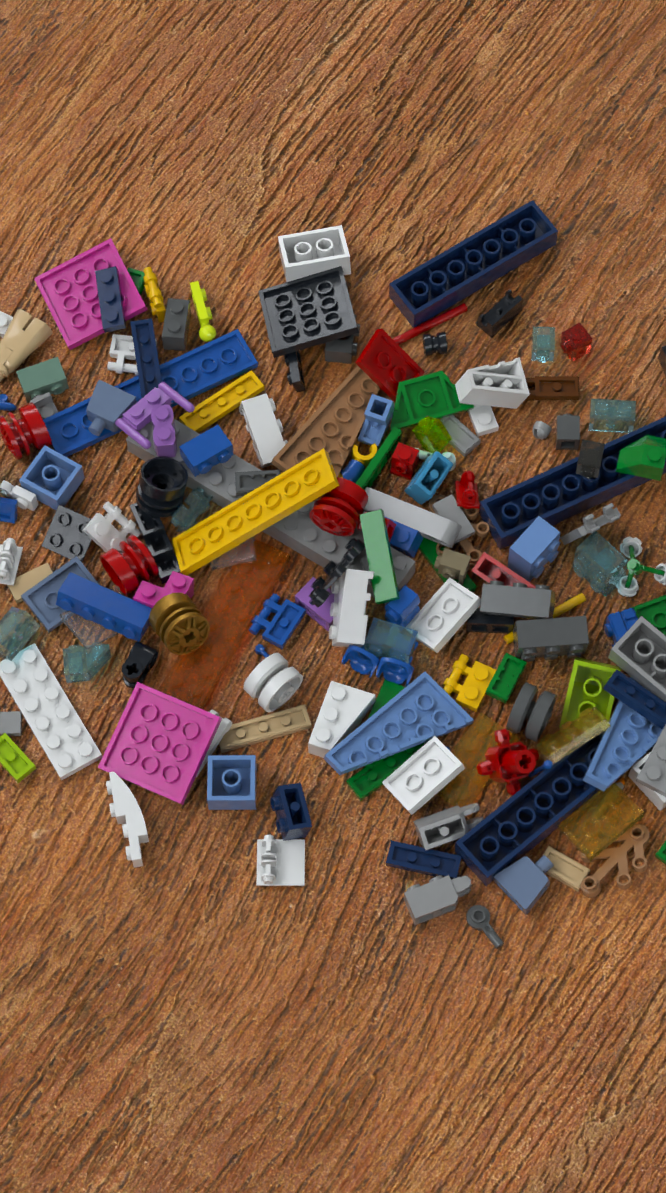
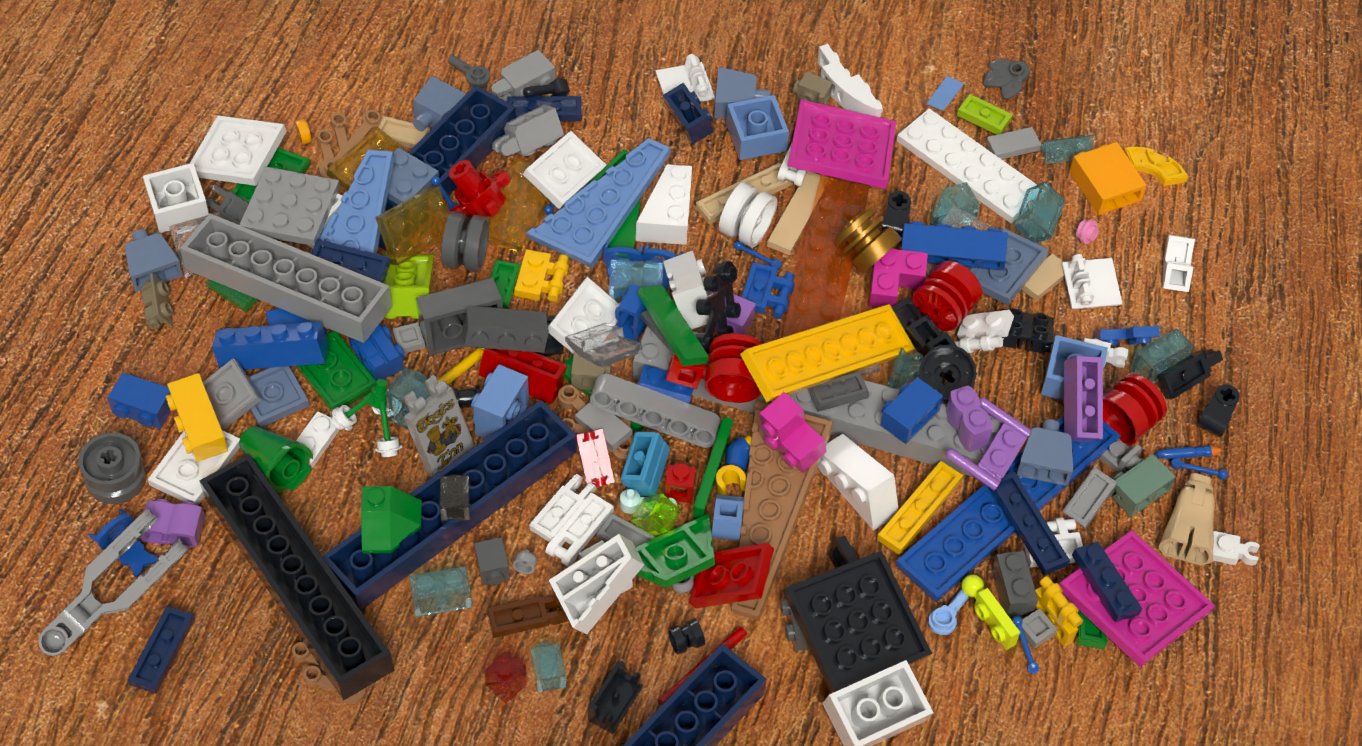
camera: 160 degrees right, 10 degrees down
(35, 800) = (945, 93): none -> medium blue sticker
(64, 430) = (1083, 398): none -> medium lavender brick
(87, 375) = (1090, 497): none -> light grey tile
(162, 818) = (813, 89): none -> dark tan brick
(172, 290) = (1038, 628): none -> light grey plate
(186, 272) = (1033, 667): none -> blue hinge
(228, 688) = (795, 216): none -> tan tile
(236, 832) = (735, 87): none -> sand blue torso
(238, 316) = (943, 619): none -> light blue plate
(309, 438) = (789, 433): none -> dark pink brick
(404, 879) = (558, 87): none -> black piece
(437, 576) = (603, 344): none -> clear slope
(492, 445) = (579, 529): none -> white plate
(503, 464) = (560, 508): none -> white hinge
(558, 575) = (465, 396): none -> black bush
(568, 782) = (409, 177): none -> sand blue plate
(597, 649) = (409, 337): none -> light grey tile
(658, 884) = (303, 131): none -> light orange tile

